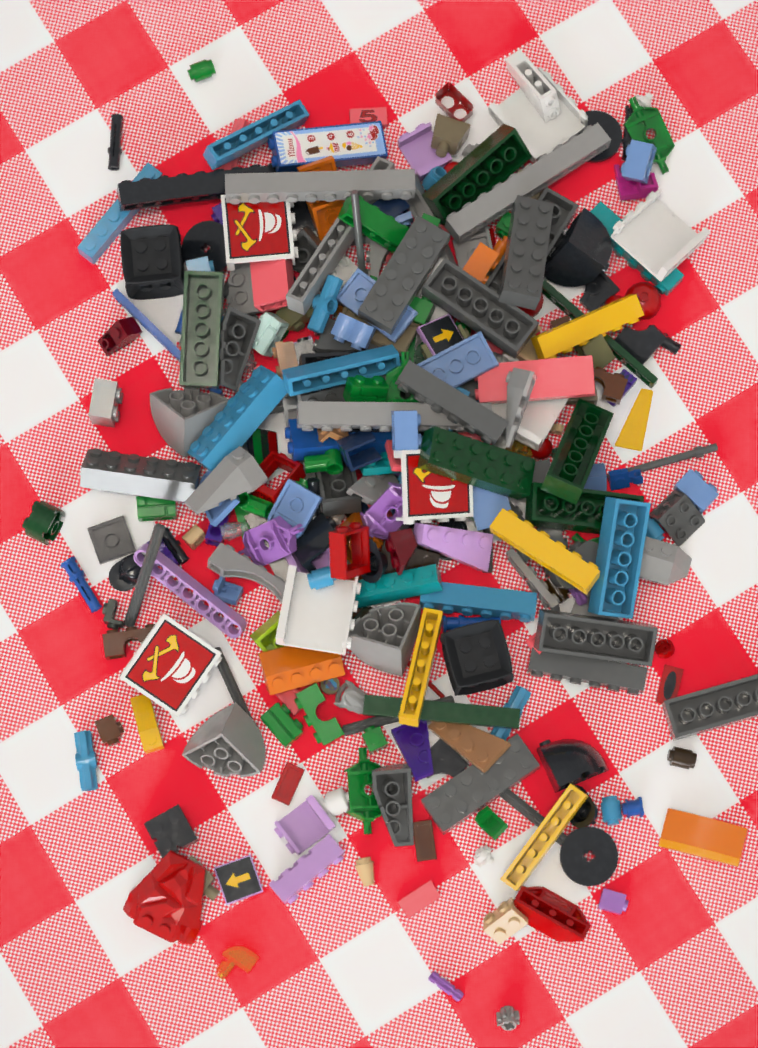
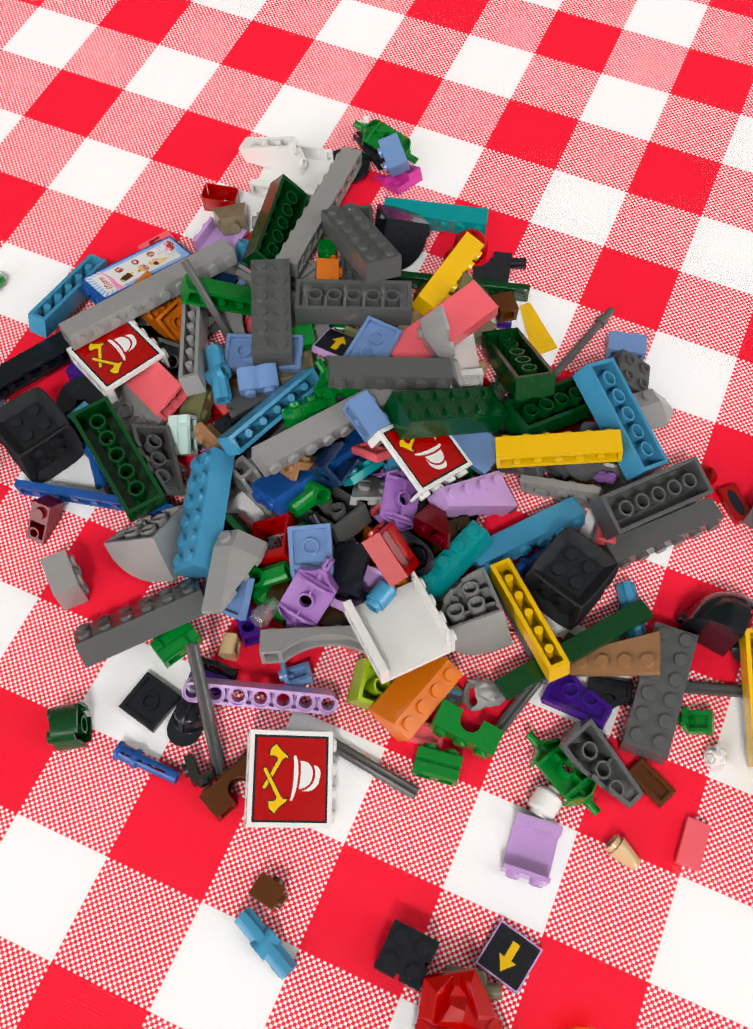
camera: 35 degrees left, 15 degrees down
(147, 724) = (304, 857): yellow slope -> none
(228, 744) = (400, 820): light grey brick -> none
(287, 784) = (484, 820): red tile -> none
(307, 869) = (569, 894): lavender wedge -> none
(374, 739) = (533, 717): green brick -> none
(597, 292) = (431, 259): black tile -> none
(621, 478) = (563, 368): blue plate -> none
(657, 236) = (446, 196): white panel -> none

